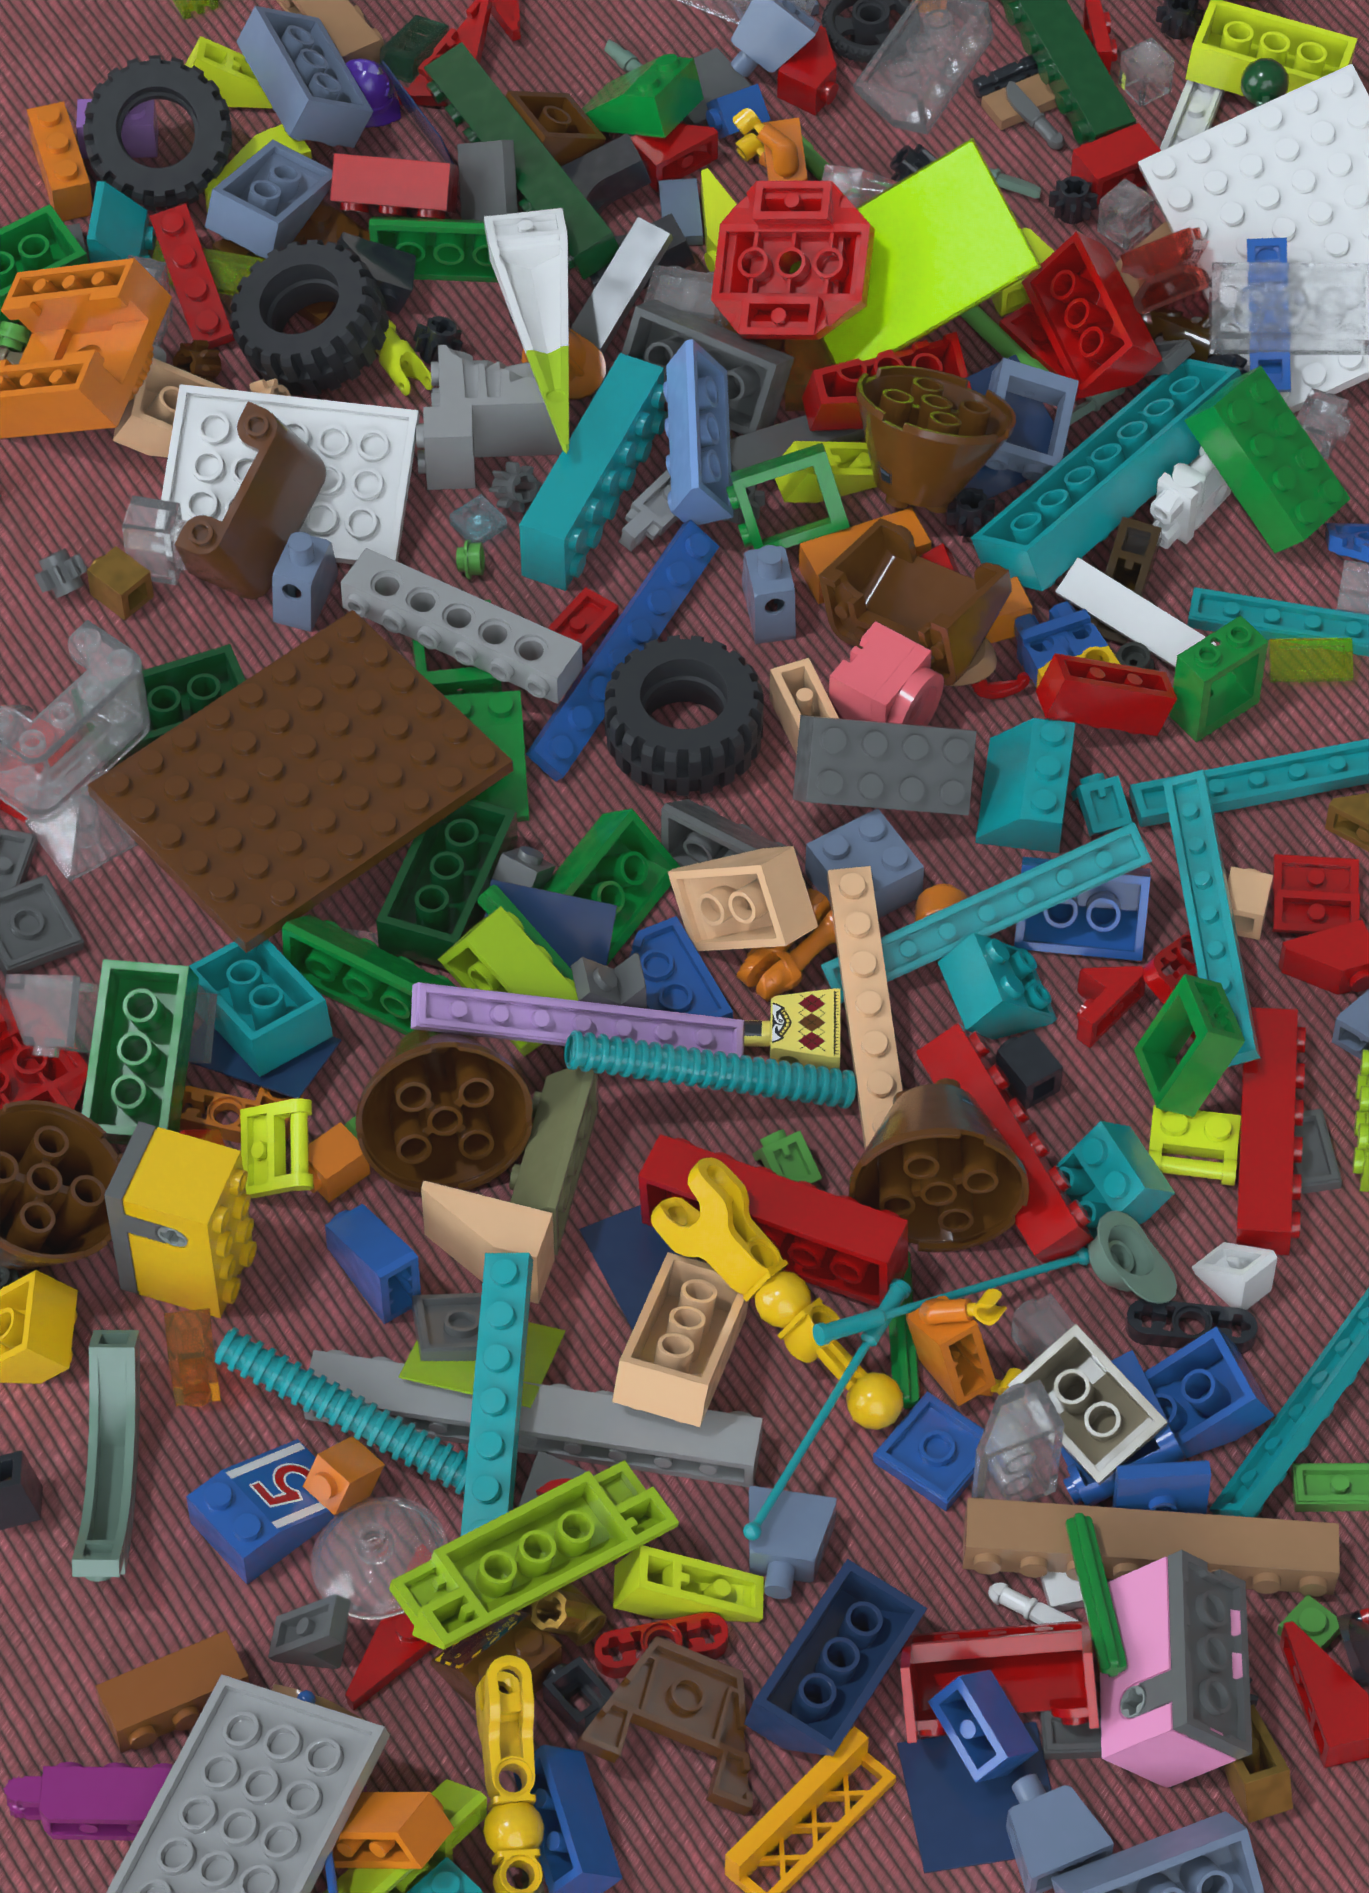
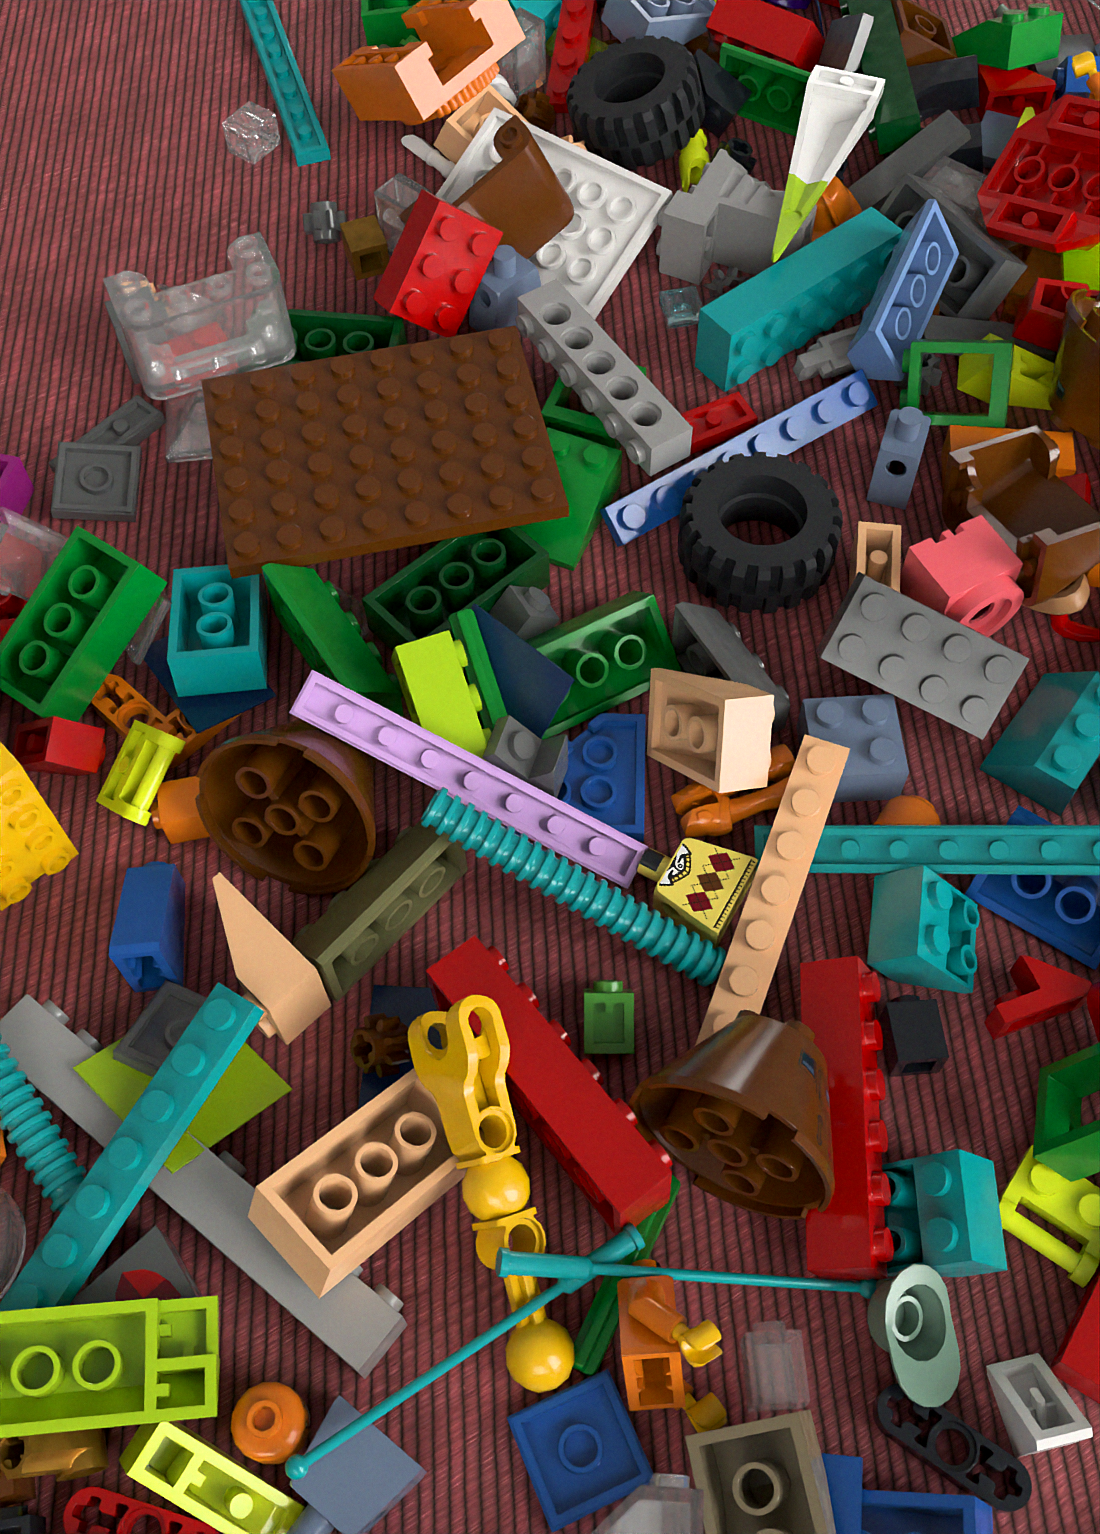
camera: 30 degrees right, 5 degrees up
(107, 451) = (428, 154): none -> white piece
(240, 579) = (437, 265): none -> red brick
(471, 559) = (657, 334): bright green plate -> none
(611, 1261) = (380, 1045): none -> reddish brown gear
(709, 1530) = (270, 1423): none -> orange head

